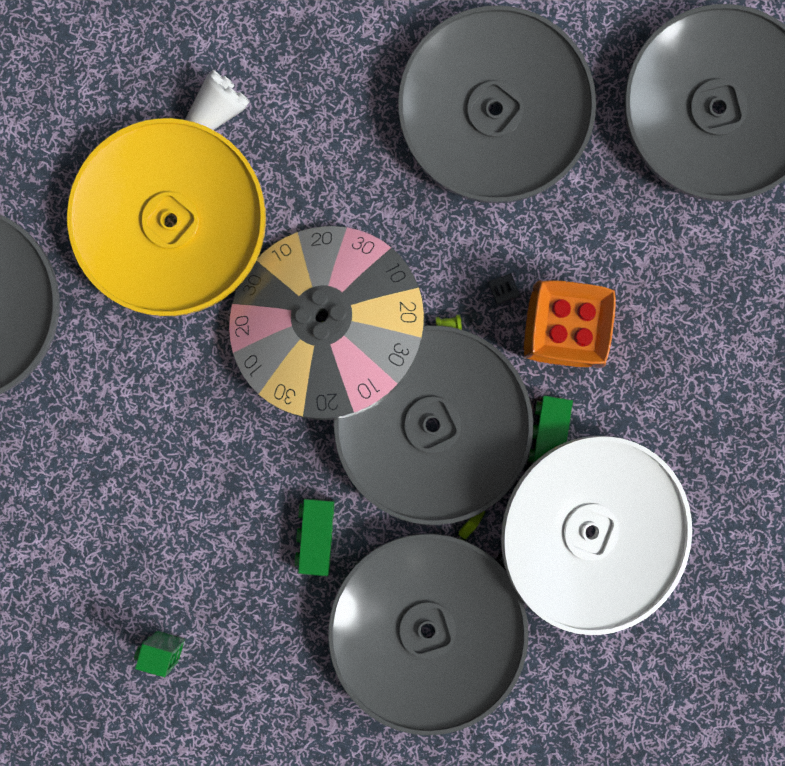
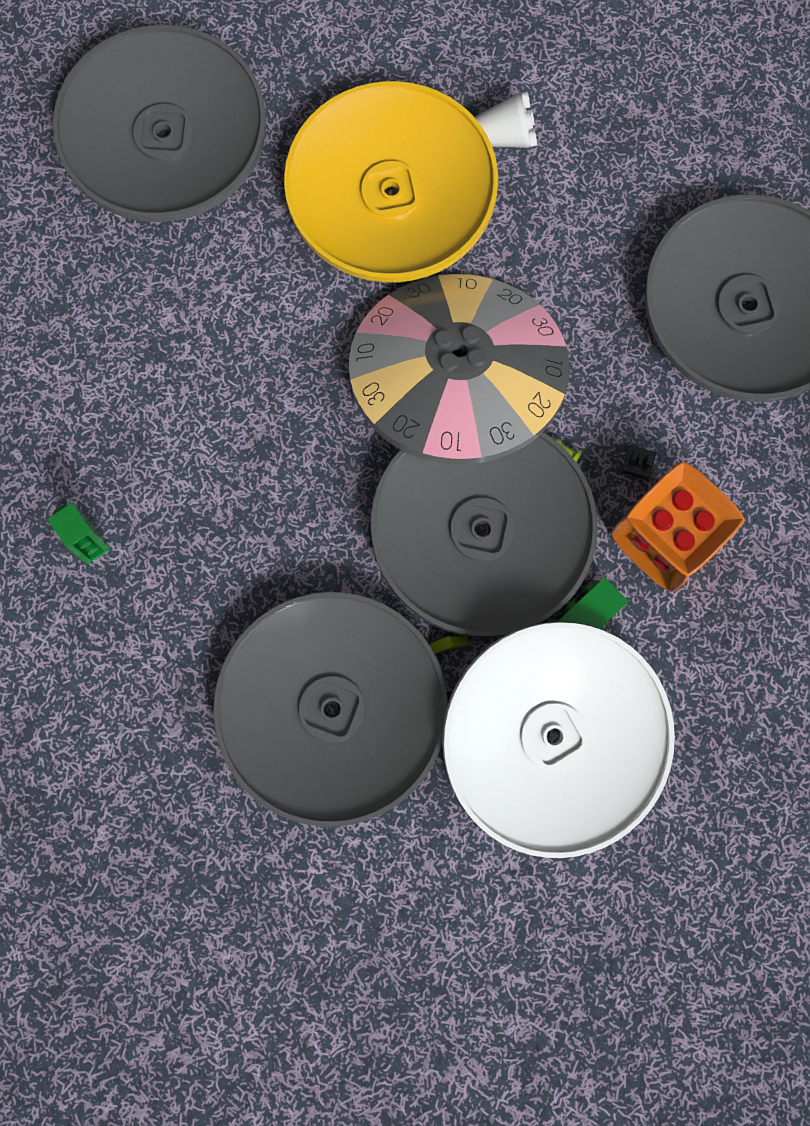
camera: 35 degrees right, 10 degrees down
(315, 536) = (299, 545): green brick -> none

